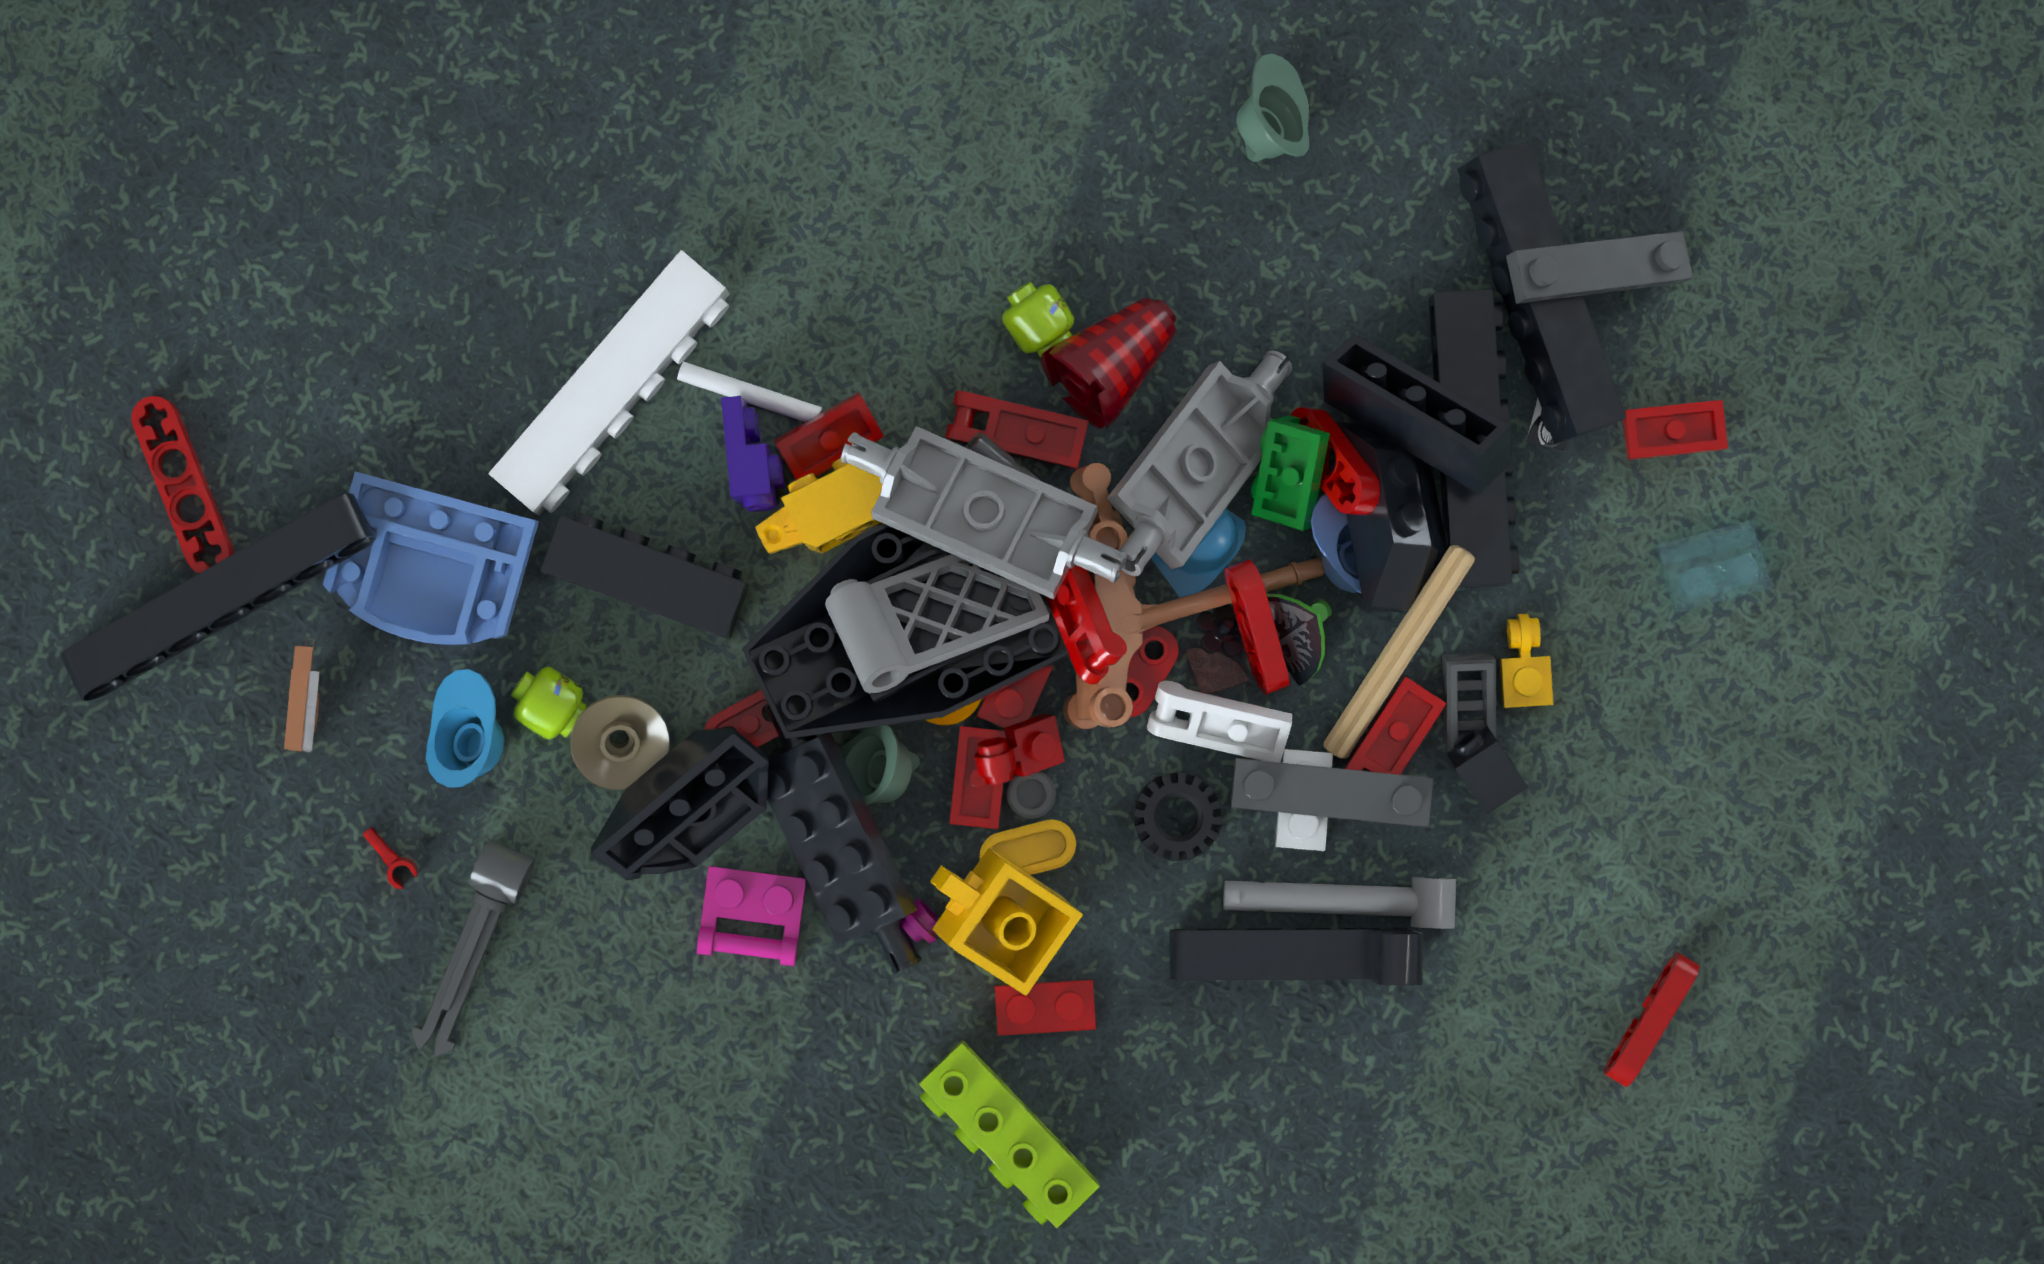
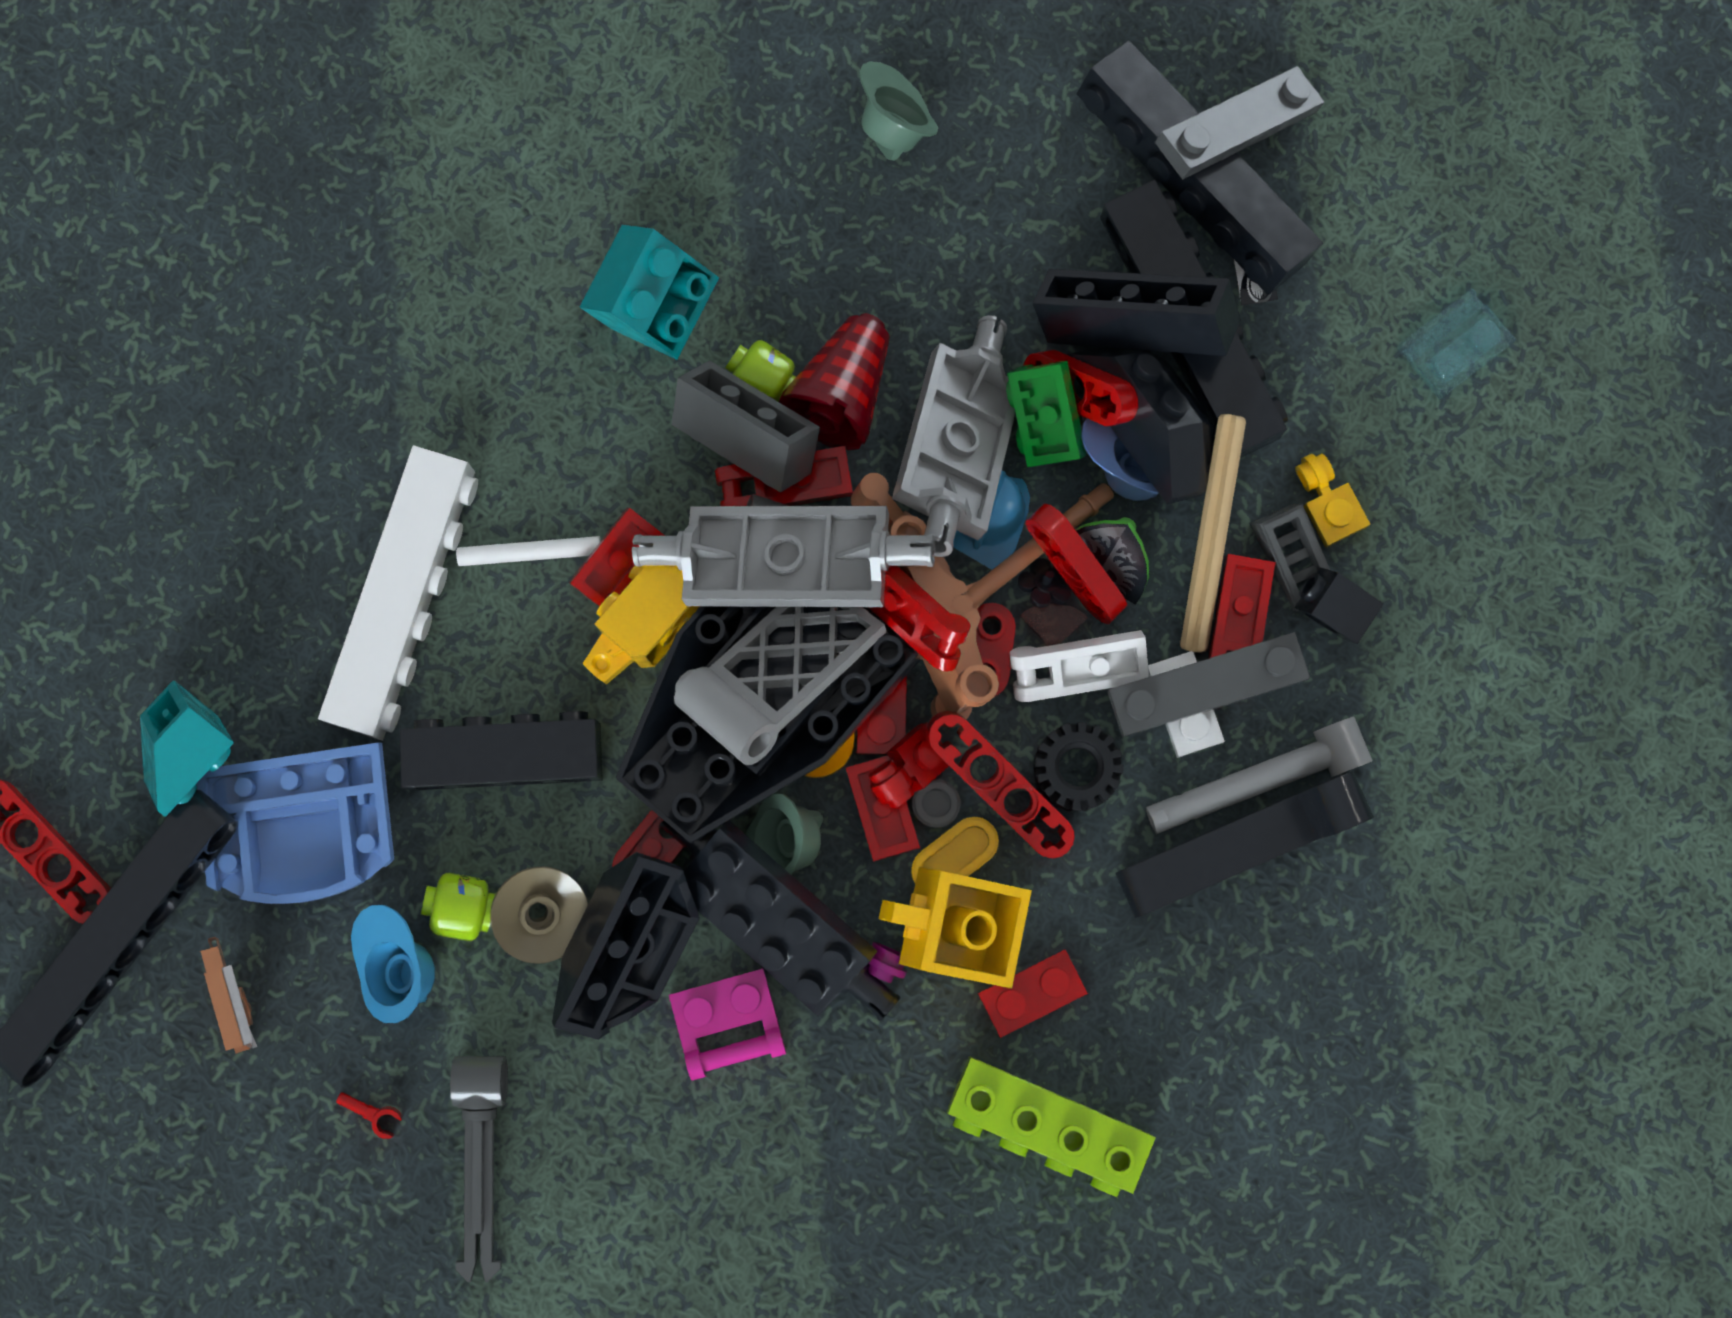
camera: 20 degrees left, 5 degrees down
(349, 445) = (180, 746): none -> teal slope
(751, 467) = (559, 613): dark purple plate -> none
(966, 191) = (649, 290): none -> teal slope
(1000, 364) = (745, 426): none -> dark grey brick
(1093, 804) = (1000, 784): none -> red beam
(1659, 1010) = (1589, 758): red beam -> none
(1675, 430) = (1369, 238): red plate -> none

